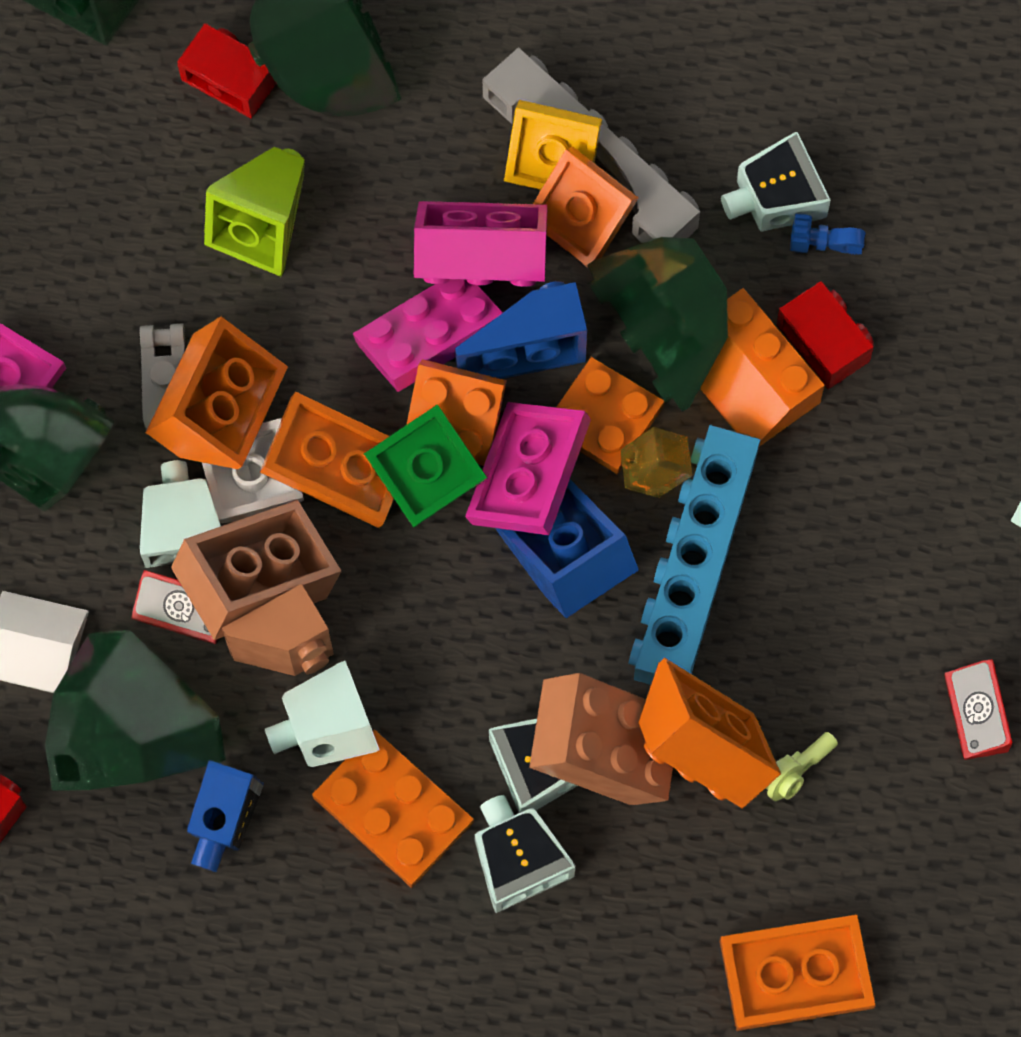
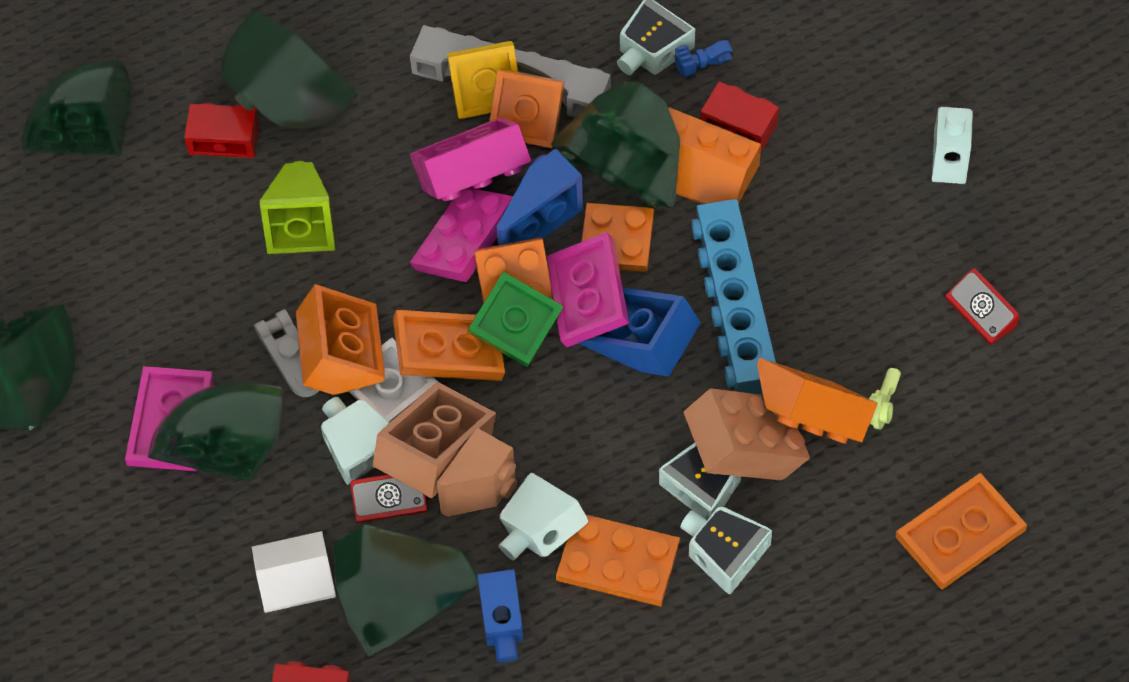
camera: 25 degrees left, 10 degrees down
(656, 462) = (673, 246): clear yellow brick -> none

